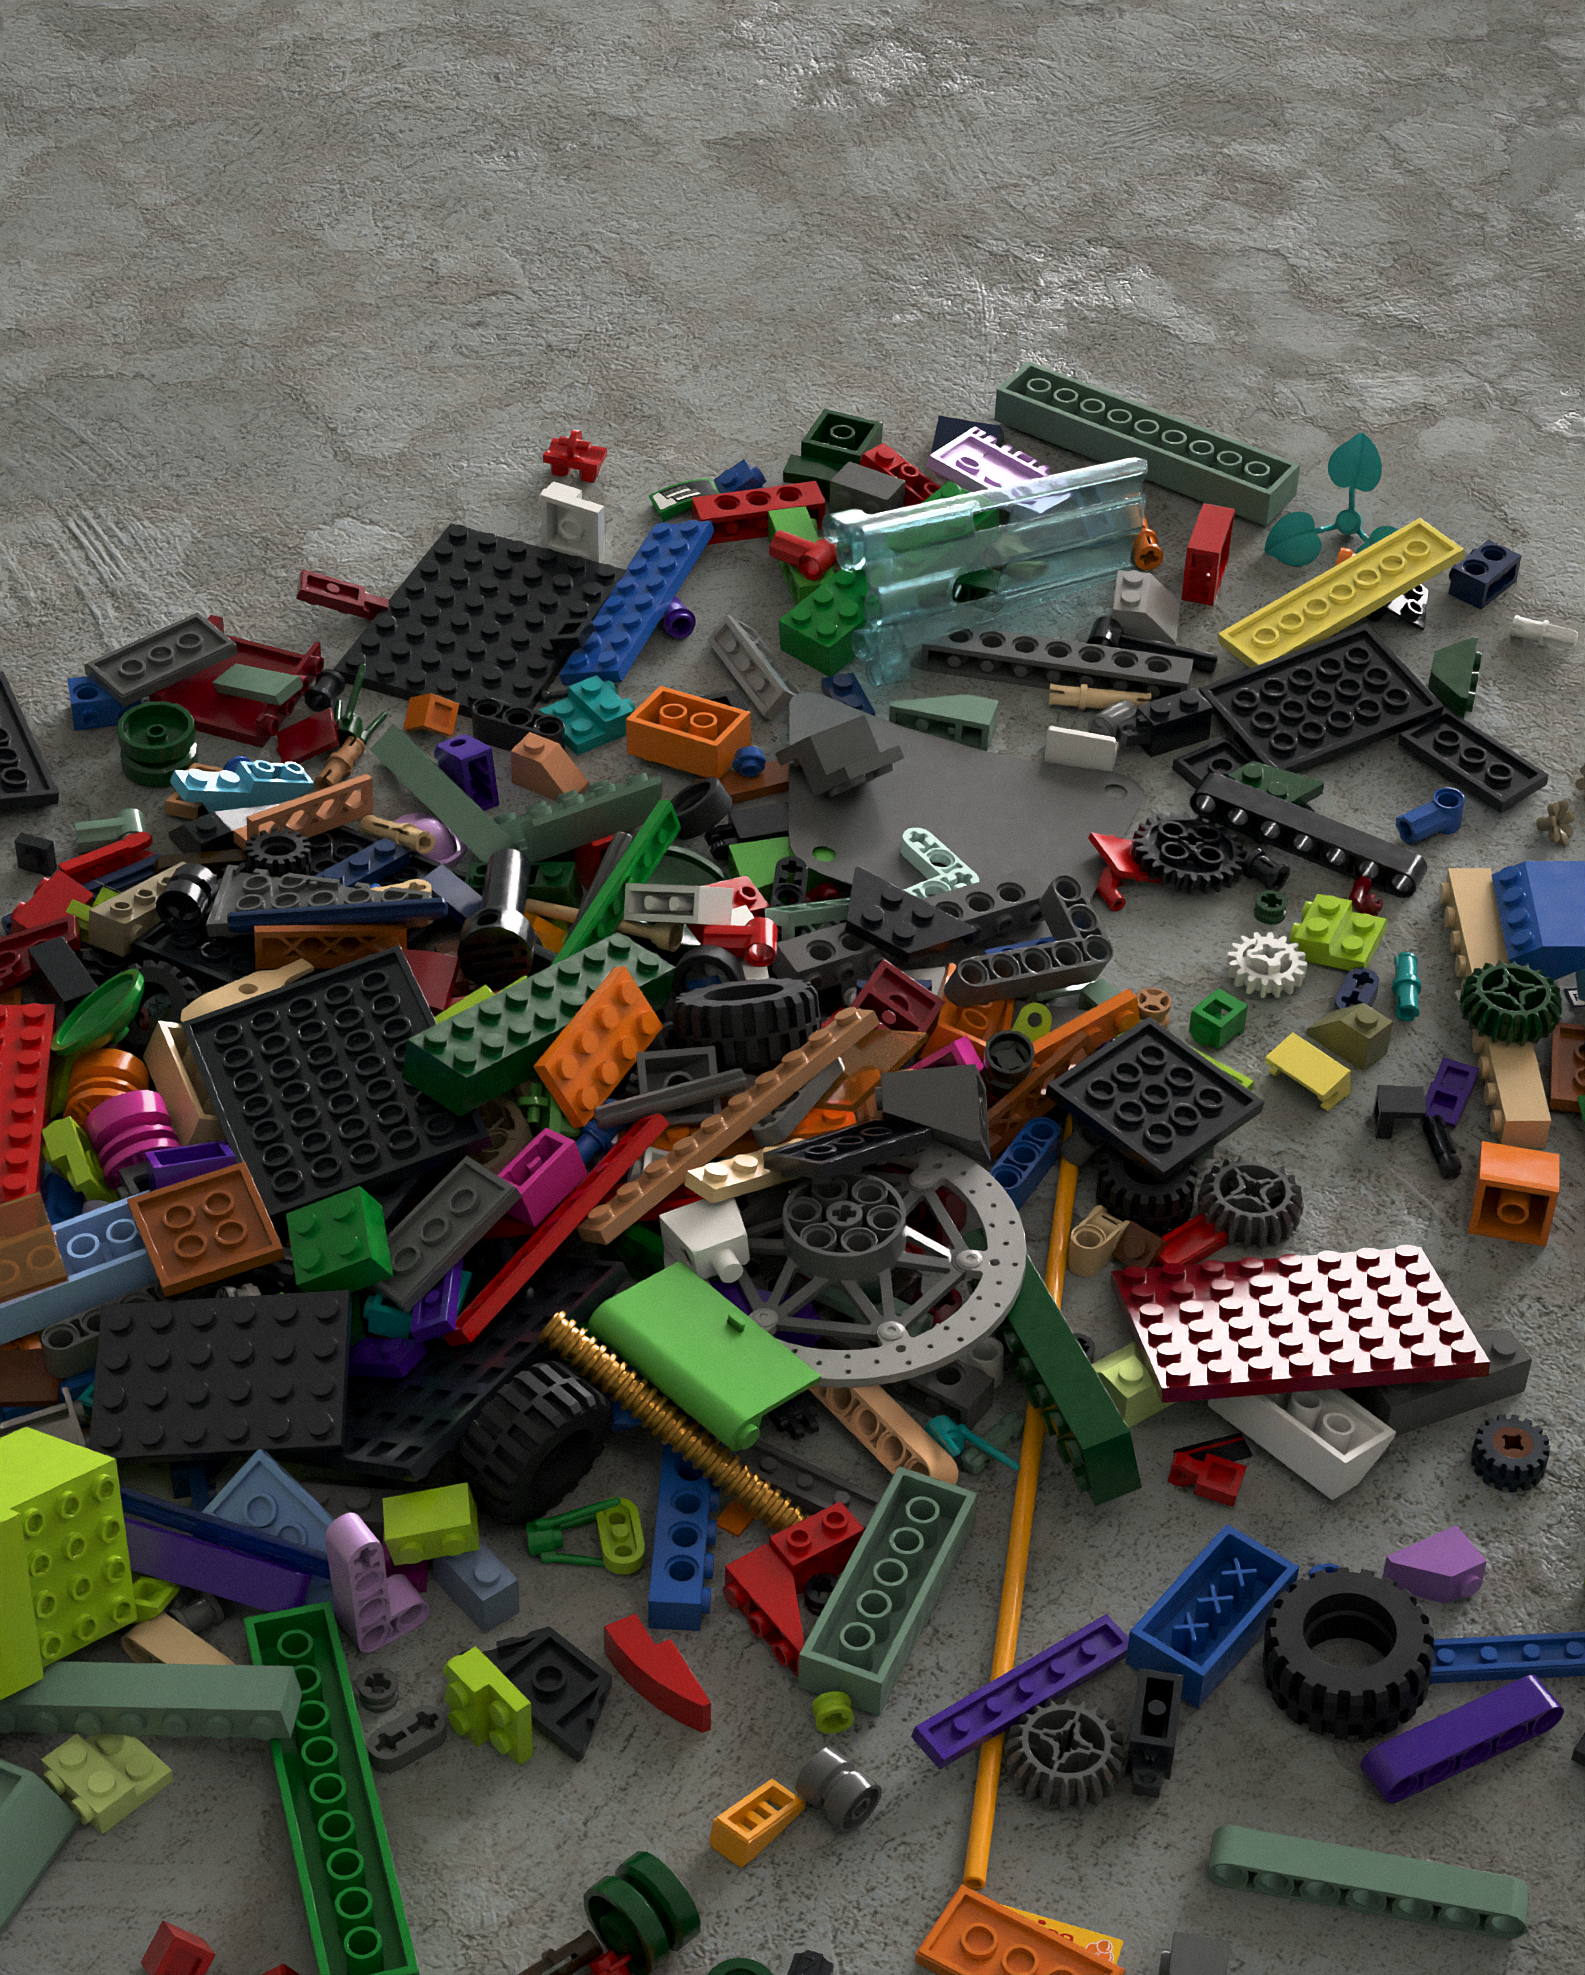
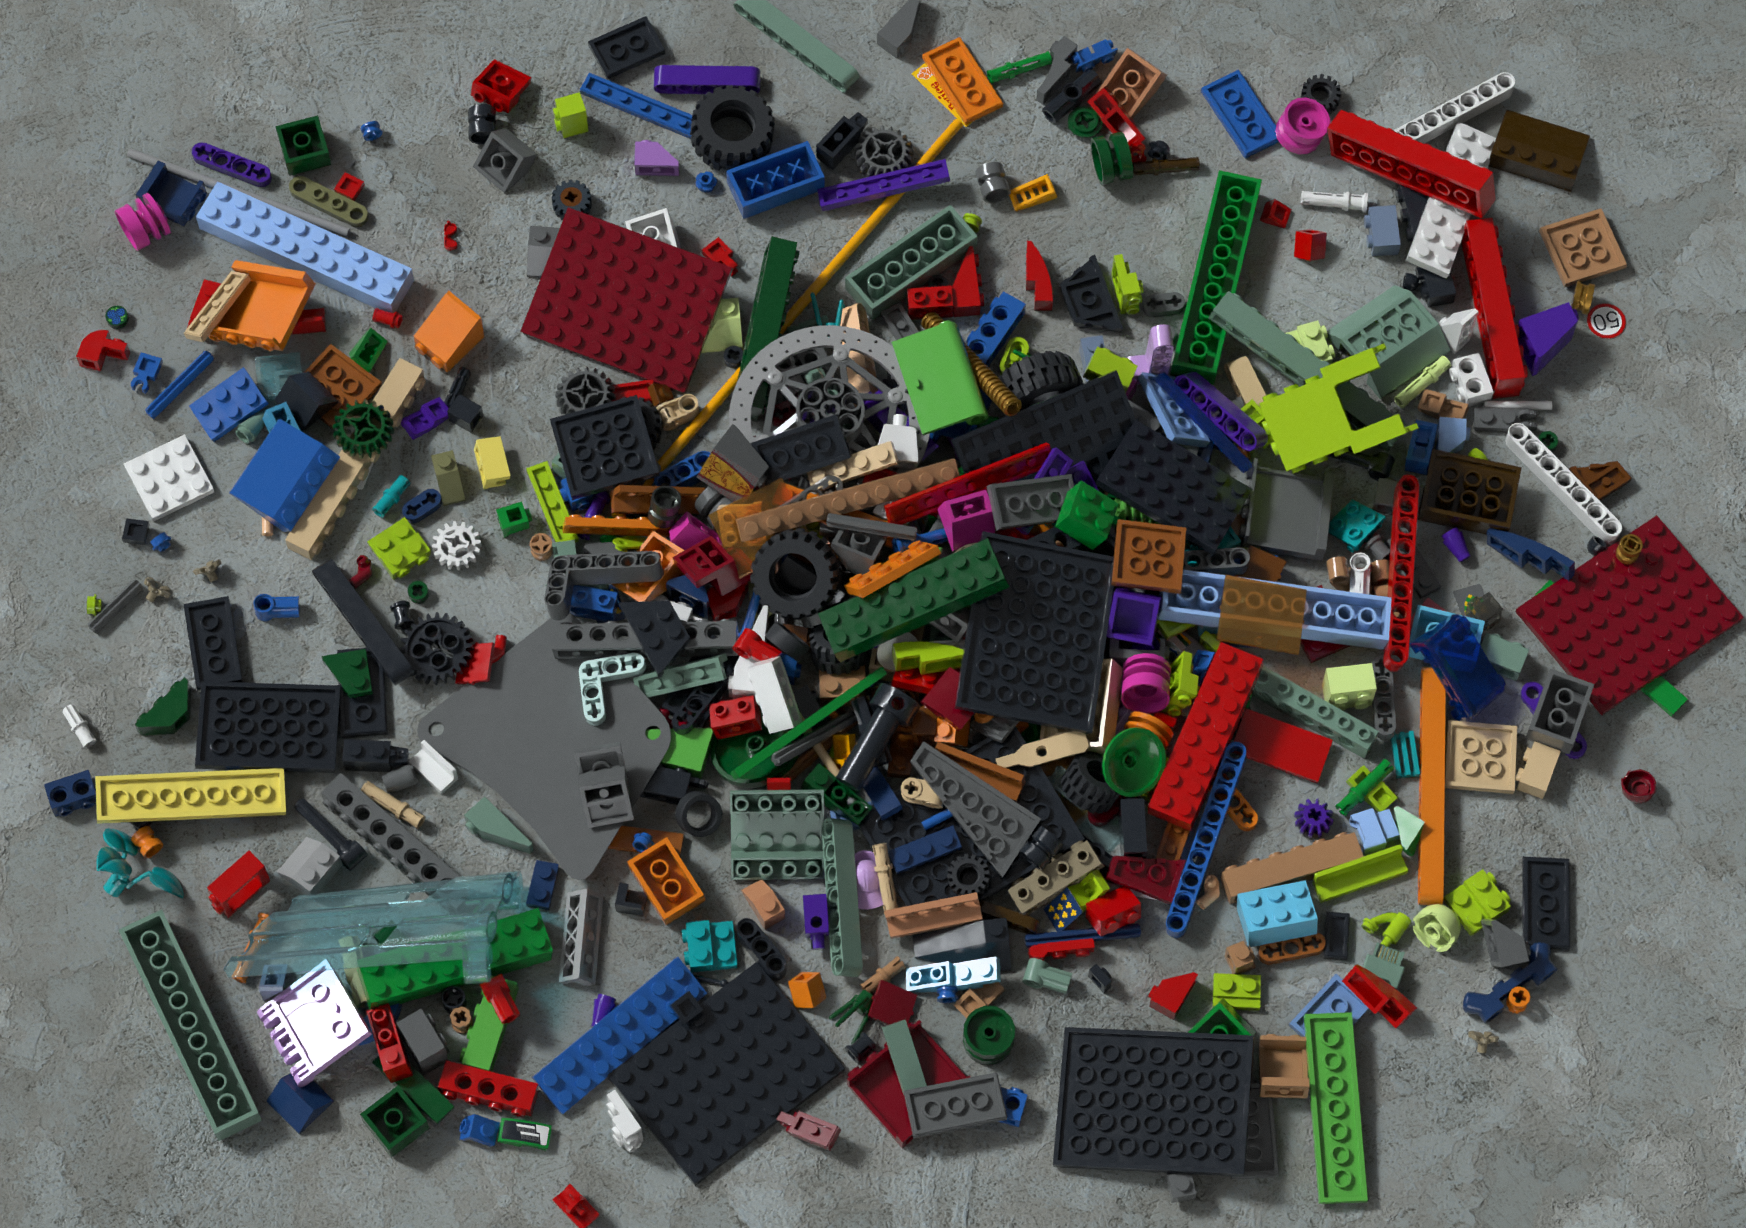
camera: 150 degrees left, 25 degrees up
(341, 914) = (971, 768): dark blue axle -> none

